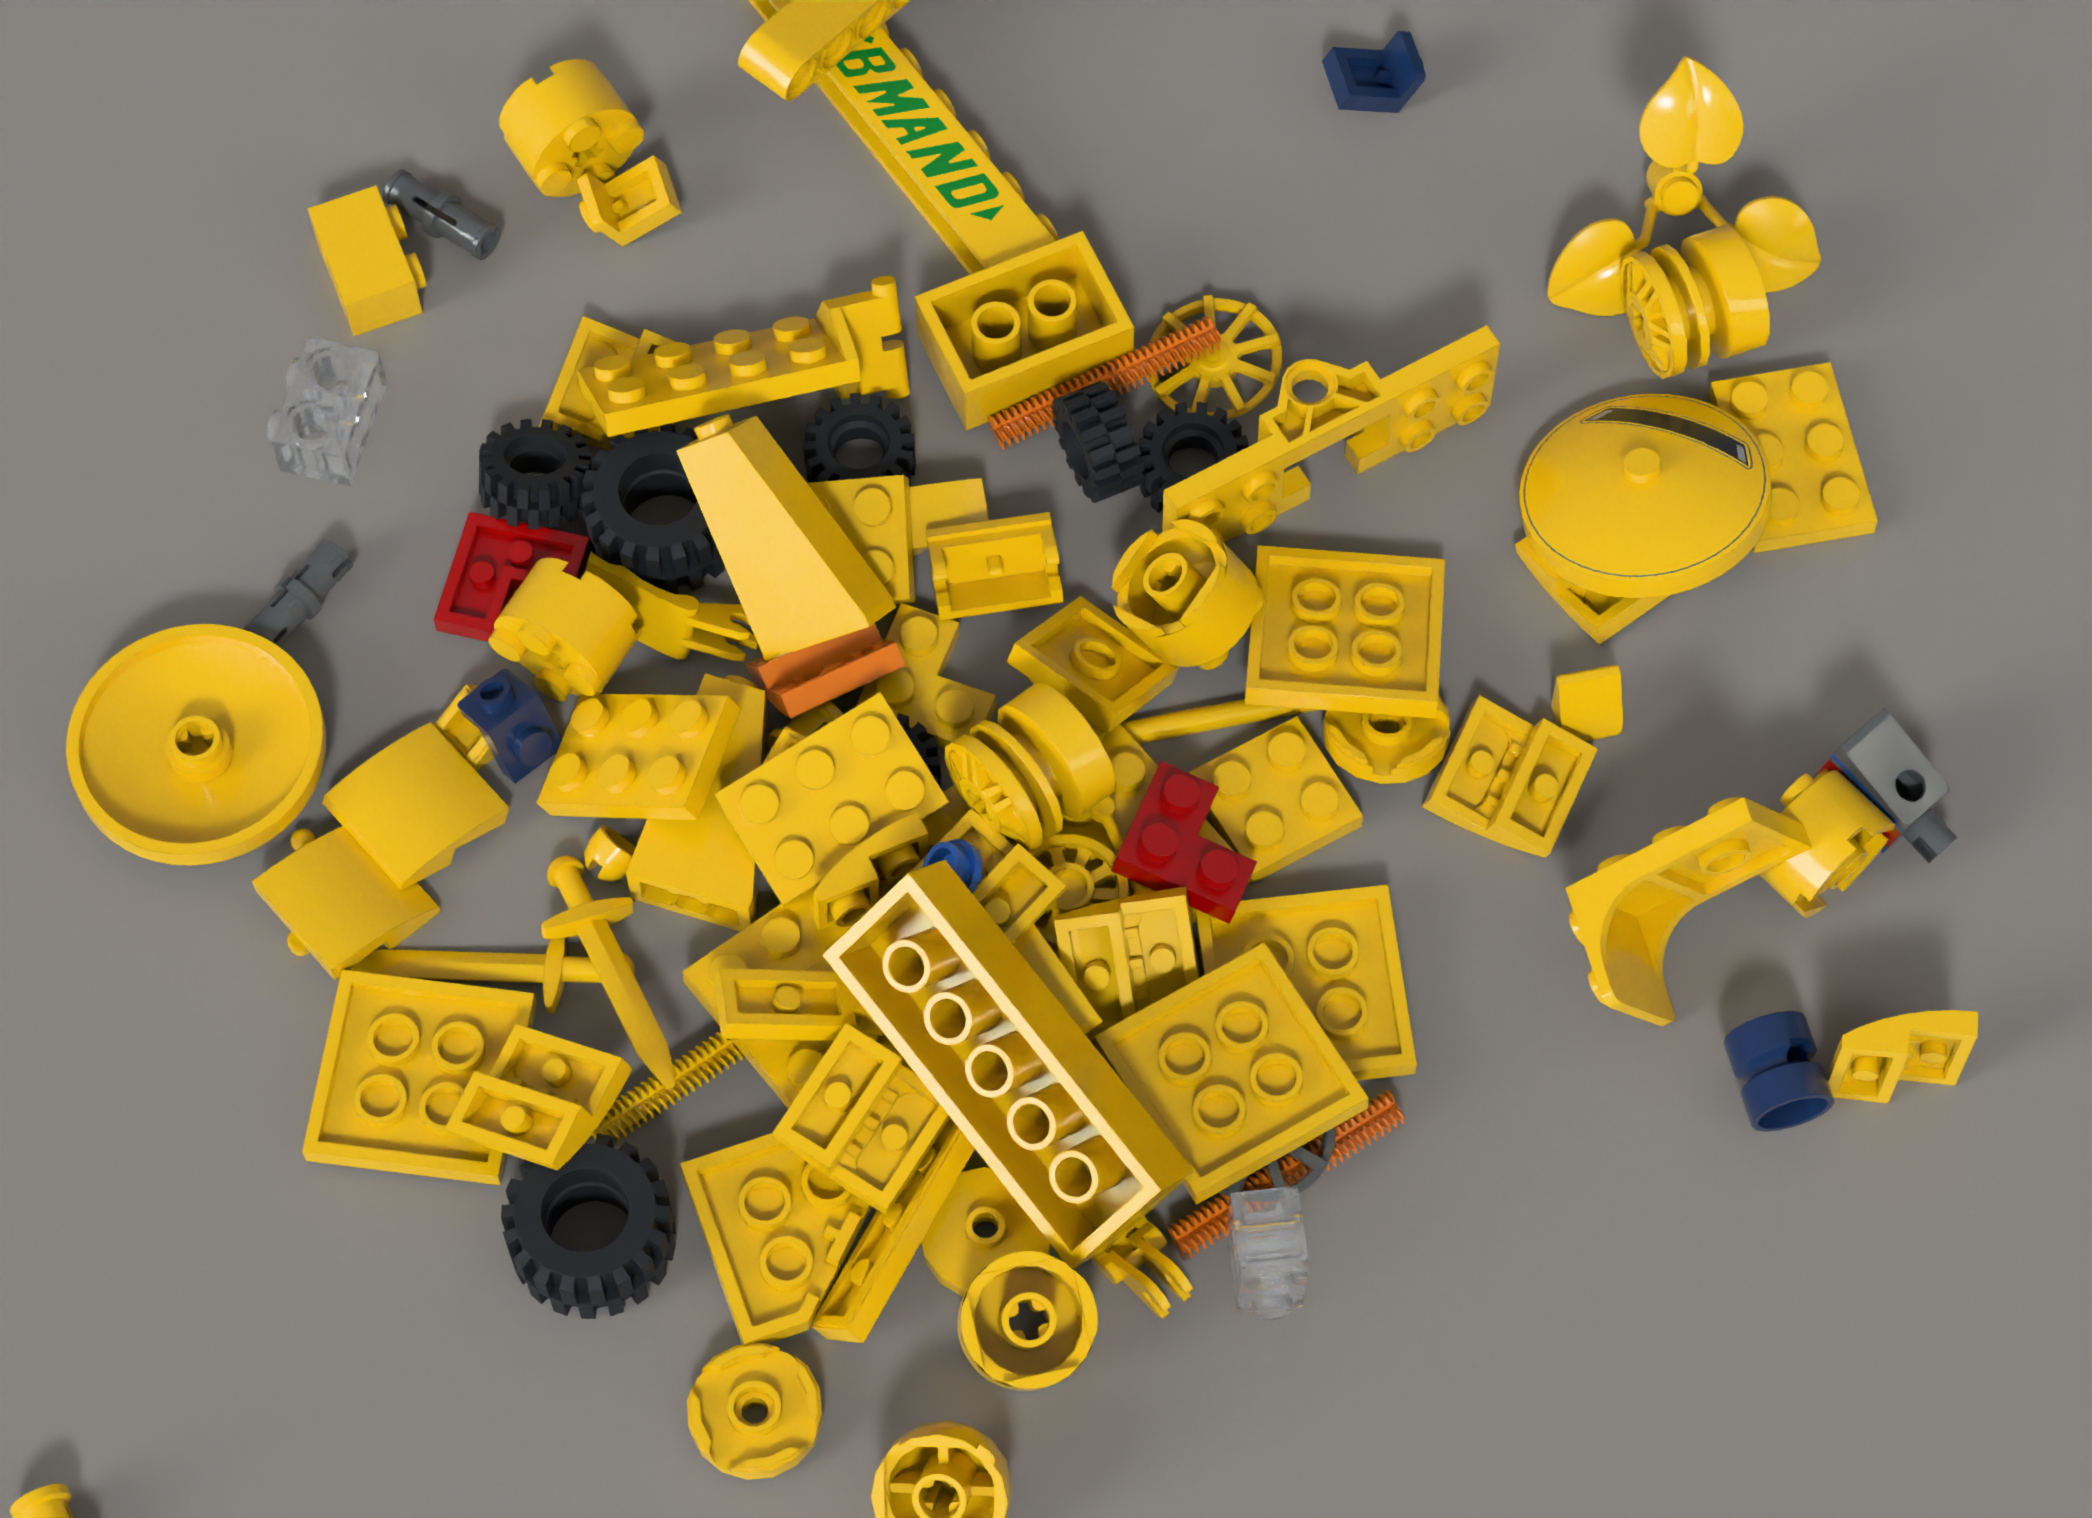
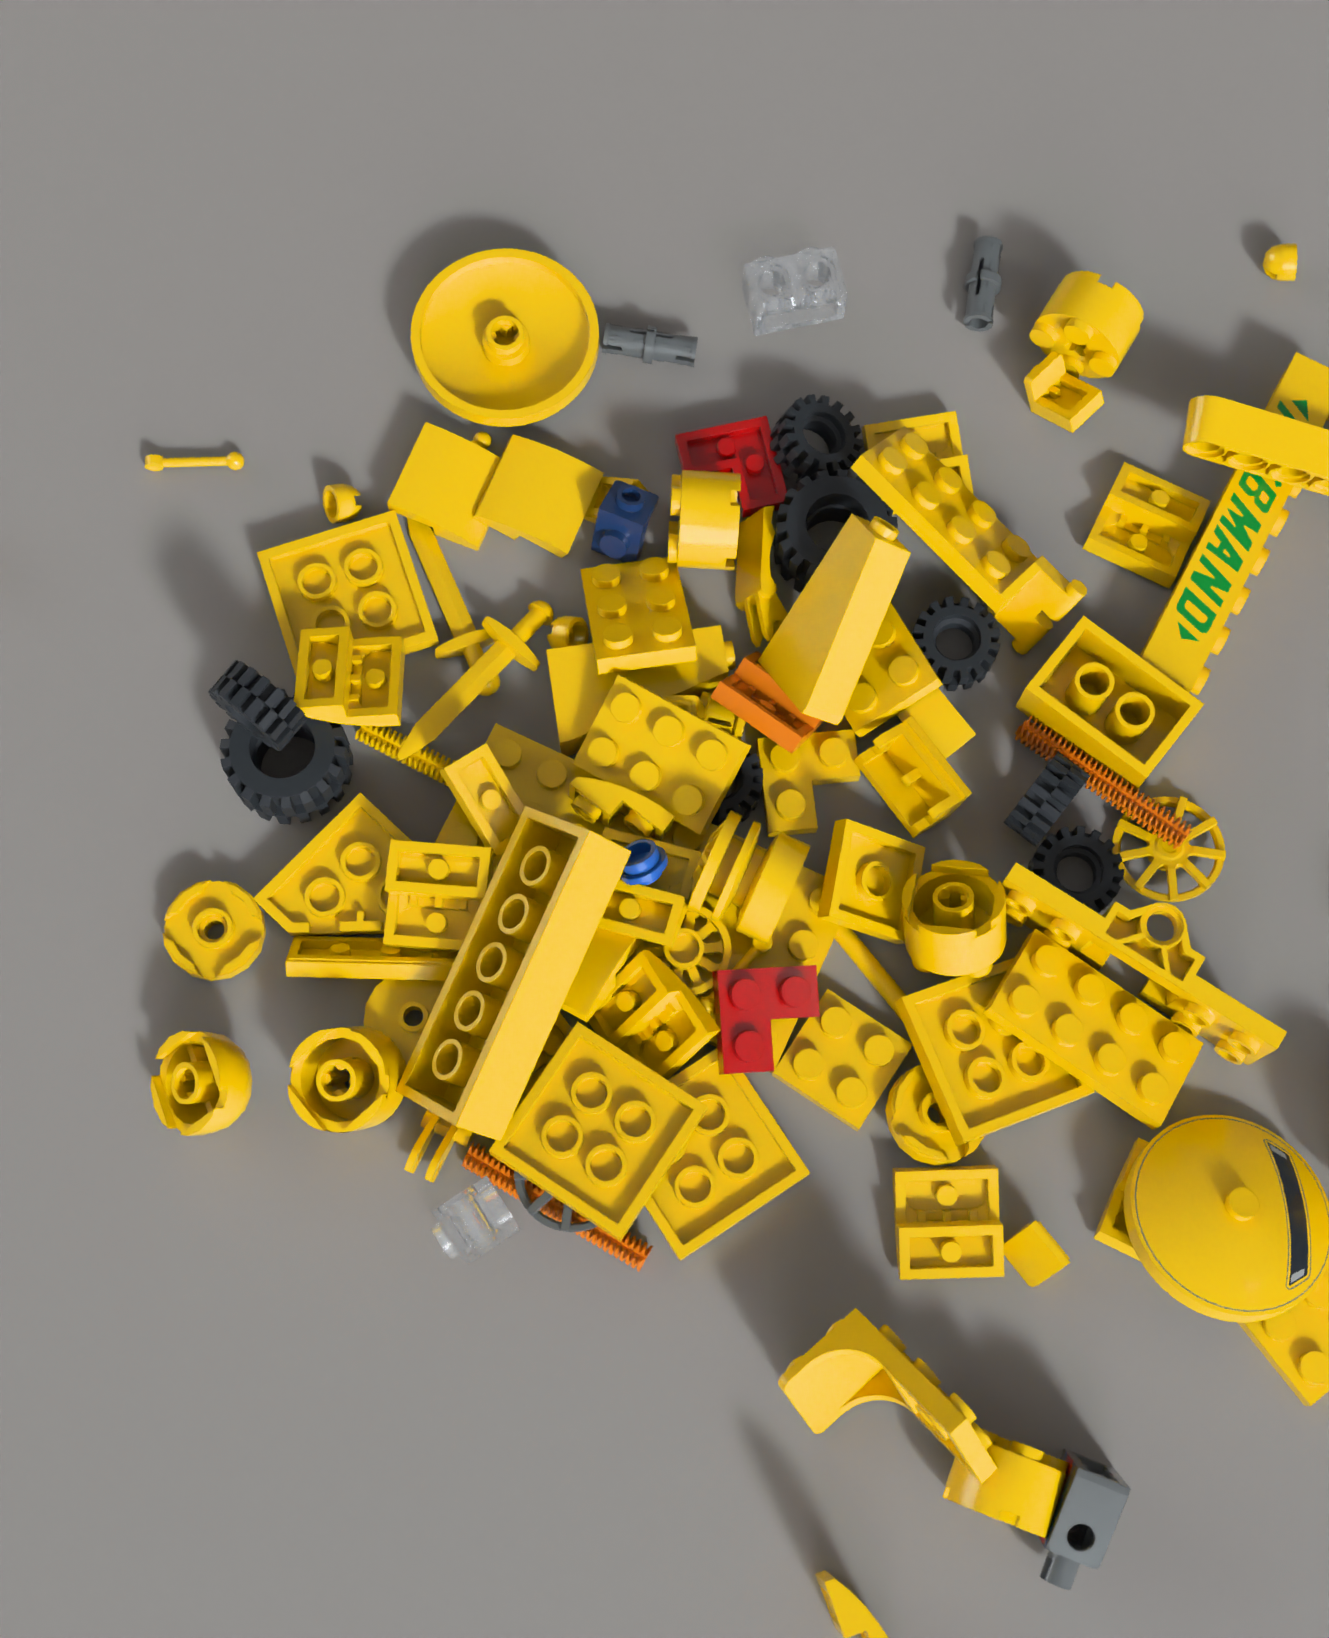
camera: 60 degrees right, 10 degrees up
(154, 1136) = (233, 460): none -> yellow hinge
(286, 1046) = (340, 502): none -> yellow hinge
(366, 259) = (919, 254): yellow brick -> none
(533, 1193) = (257, 705): none -> black tyre
(830, 197) = (1146, 525): none -> yellow slope
(1375, 525) = (1093, 1029): none -> yellow plate
(1780, 1078) = (807, 1534): dark blue wheel -> none

